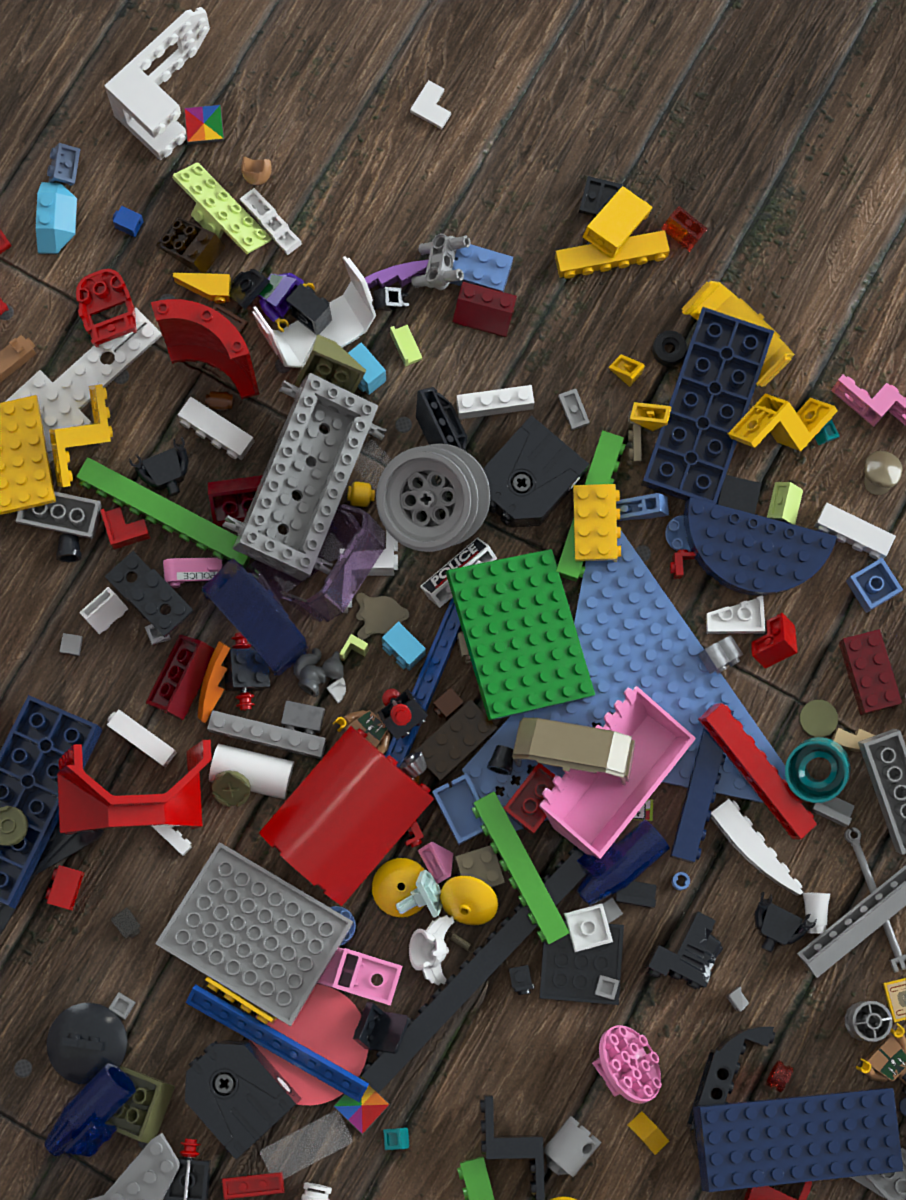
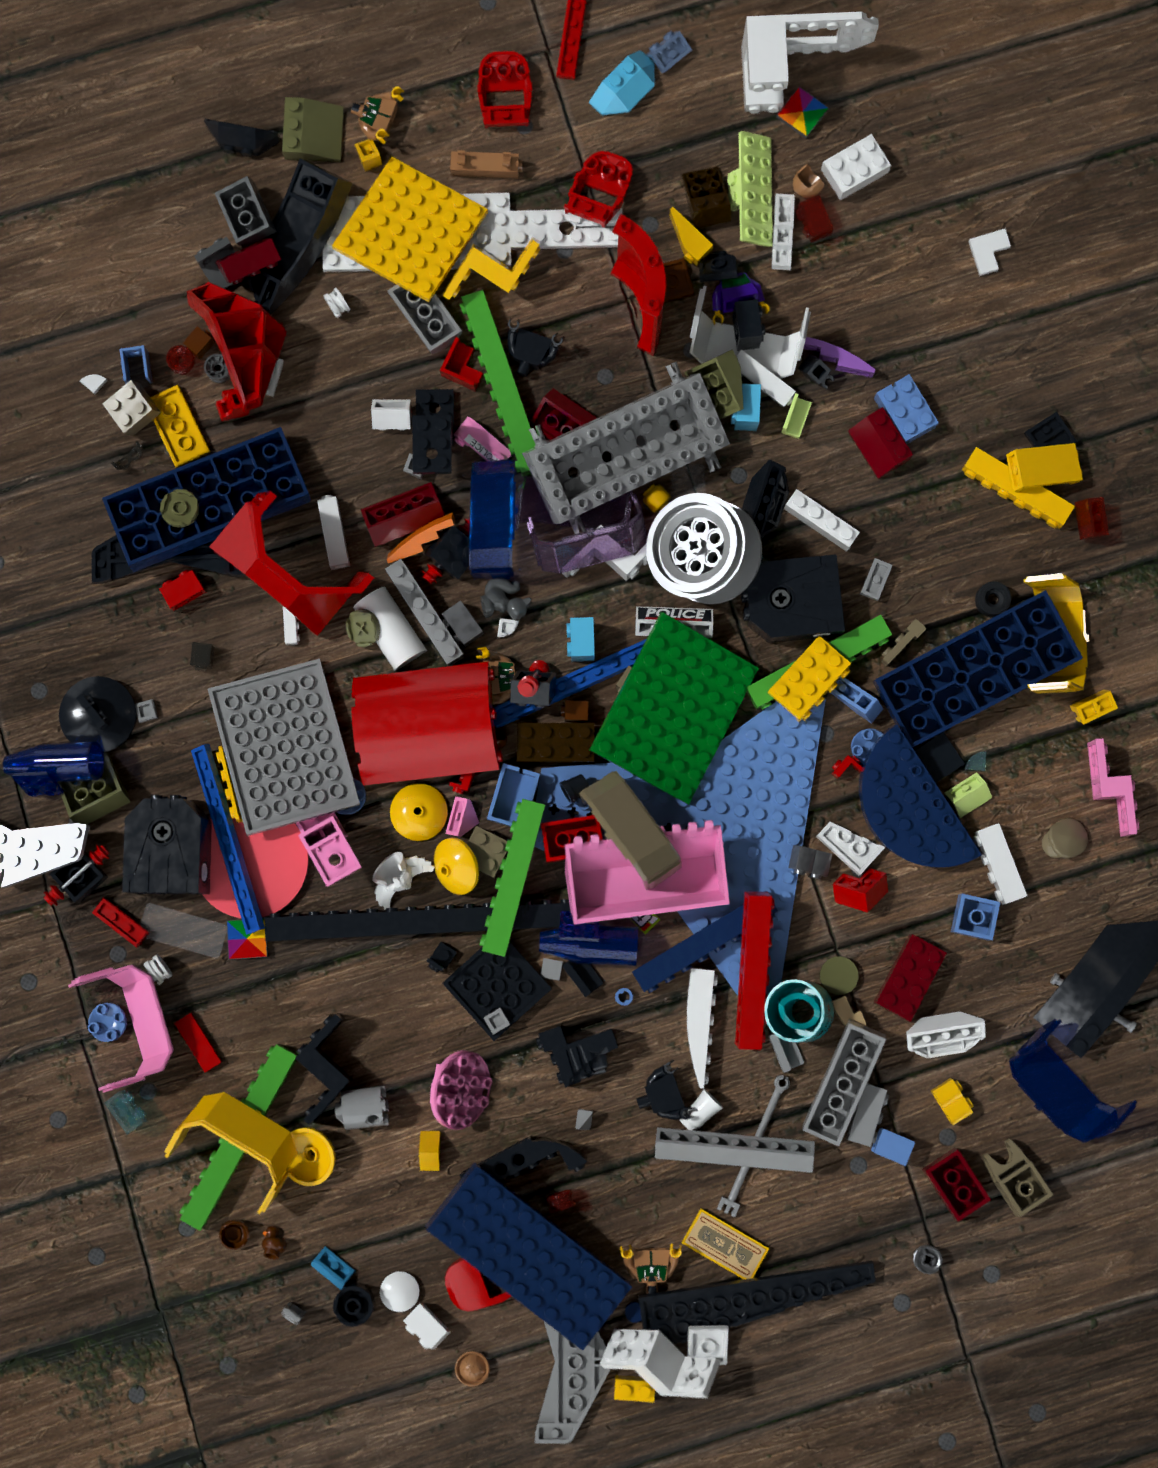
camera: 50 degrees right, 5 degrees up
(68, 548) = (408, 345): black piece -> none
(71, 644) = (346, 418): light grey tile -> none
(127, 221) = (676, 136): blue brick -> none
(216, 428) = (596, 352): white brick -> none
(219, 400) = (618, 334): reddish brown brick -> none
(280, 129) = (855, 167): none -> white brick
(285, 192) = (814, 218): none -> clear red brick
(355, 644) = (544, 602): yellowish green panel -> none
(369, 336) = (769, 382): none -> white brick
(378, 614) = (587, 600): dark tan tile -> none
(380, 1029) = (308, 897): black bracket -> none
(396, 1138) = (249, 985): teal slope -> none
(414, 764) = (507, 732): flat silver piece -> none
(426, 893) = (430, 832): light aqua piece -> none
(440, 262) = (879, 377): light grey piece -> none
(461, 942) = (424, 890): dark tan piece -> none
(588, 927) = (523, 966): white tile -> none
(627, 369) = (945, 585): yellow slope -> none
(650, 415) = (926, 635): yellow slope -> none
(768, 474) = (976, 762): none -> clear light blue tile
(783, 422) = (1022, 724): yellow bracket -> none
(812, 359) = (1094, 706): none -> yellow hinge
(827, 433) = (1051, 770): teal slope -> none
(868, 1021) = (661, 1223): light grey cylinder -> none

